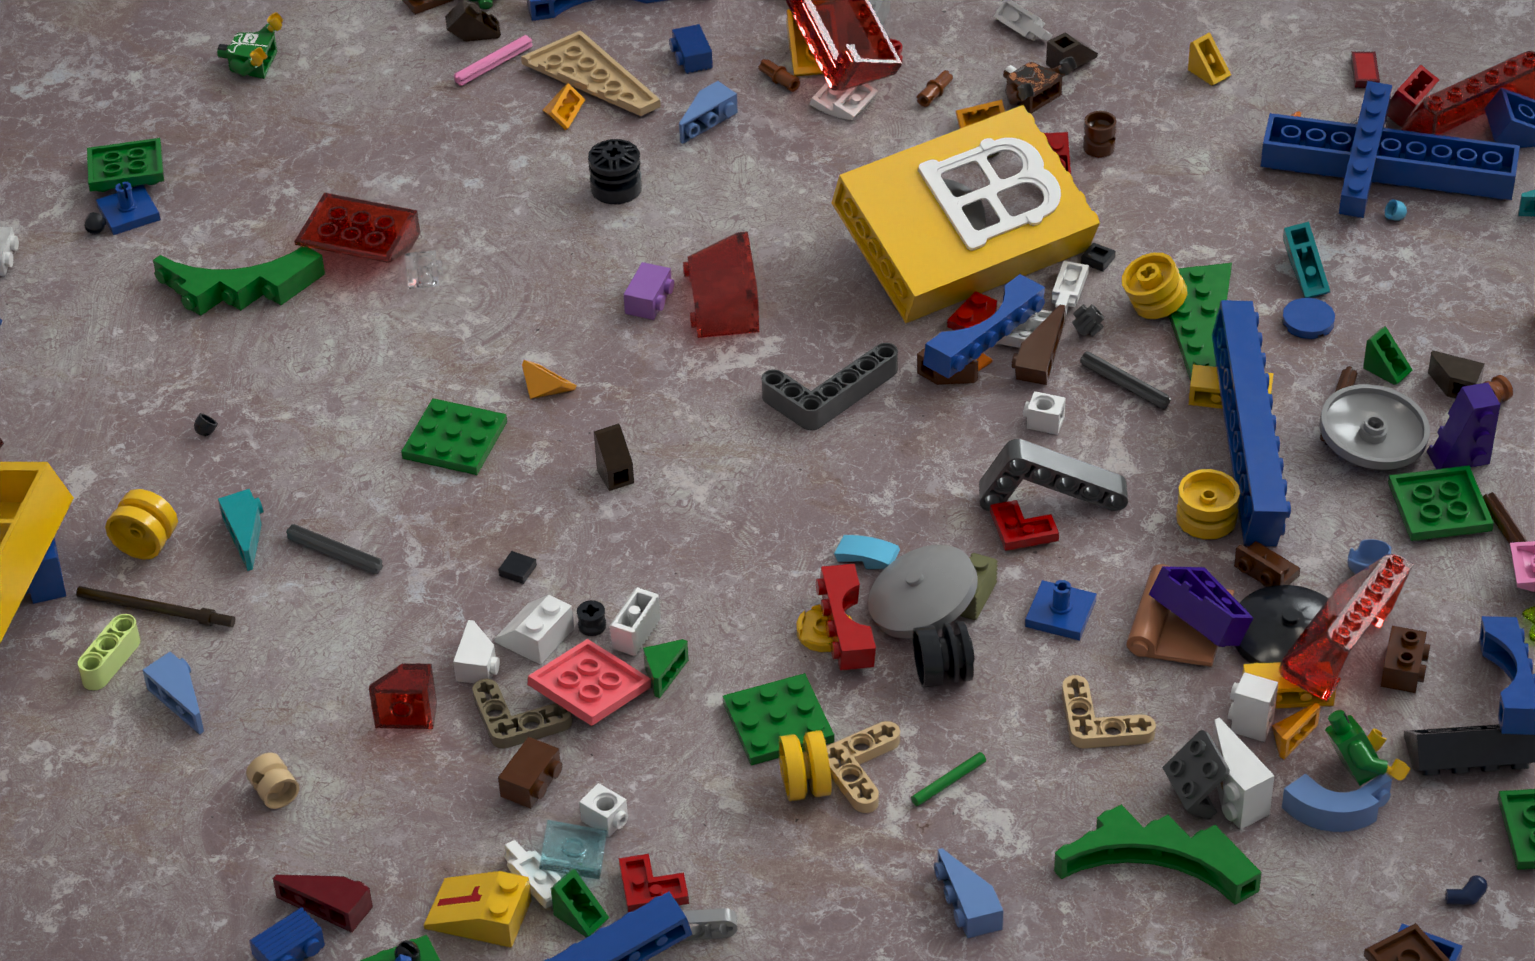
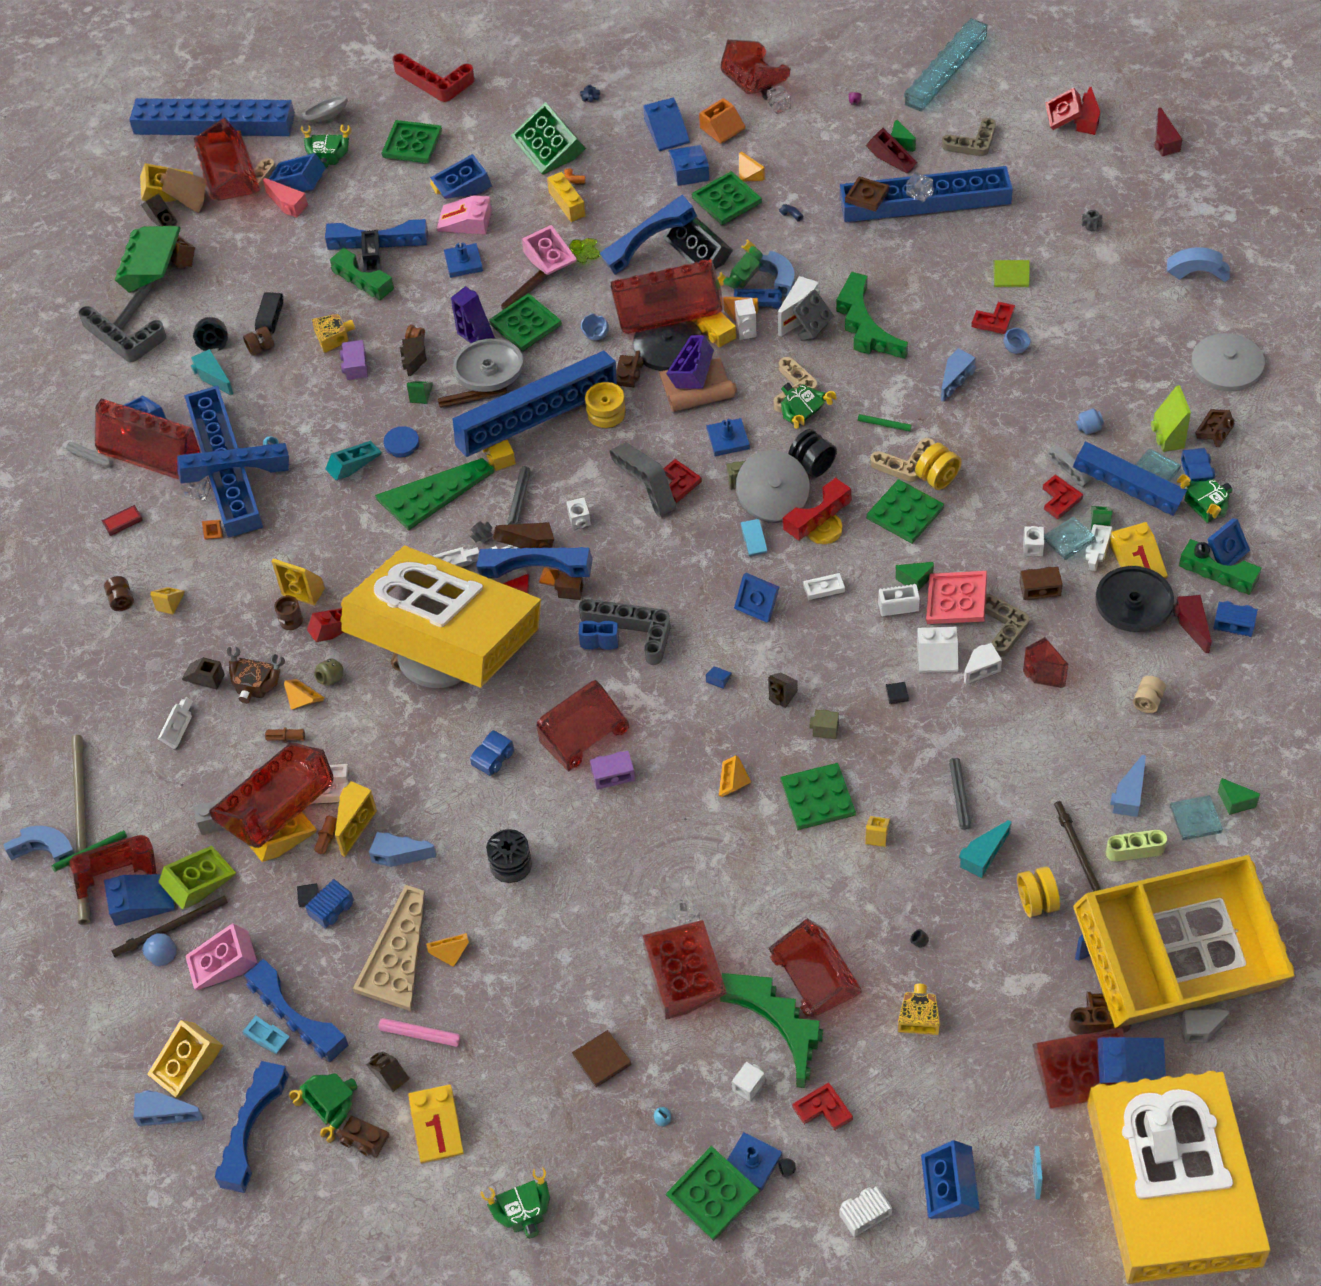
camera: 120 degrees left, 10 degrees up
(64, 778) = (1236, 797): none -> green slope
(86, 734) = (1196, 817): none -> clear light blue tile
(122, 276) = (825, 1102): none -> red plate
(128, 381) = (919, 1012): none -> yellow torso
(200, 234) = (748, 1081): none -> white brick
(236, 173) = (659, 1119): none -> medium azure hinge
(248, 339) = (815, 968): none -> clear red windscreen
(336, 159) = (601, 1058): none -> reddish brown tile
(359, 452) = (877, 831): none -> yellow slope
(392, 36) = (436, 1123): none -> yellow slope
(413, 849) = (1134, 598): none -> black dish
(533, 479) = (825, 724): none -> olive brick
(591, 618) = (910, 634): black wheel -> none
(690, 428) = (718, 677): none -> blue slope
(722, 43) = (306, 893): none -> black tile
(729, 576) = (824, 586): none -> white plate
(760, 215) = (491, 753): none -> blue brick
(762, 499) = (756, 597): none -> blue tile
(774, 84) = (353, 816): none -> yellow slope
(836, 347) = (596, 635): none -> blue brick
(1042, 689) = (803, 403): none -> green torso
(1134, 141) = (298, 582): none -> yellow slope
(1154, 285) = (434, 507): yellow wheel -> none
(1243, 29) = (118, 593): none -> reddish brown wheel
(1302, 756) = (765, 297): none -> blue plate
(1411, 94) = (163, 463): red slope -> none
(1488, 322) = (354, 360): none -> medium lavender brick

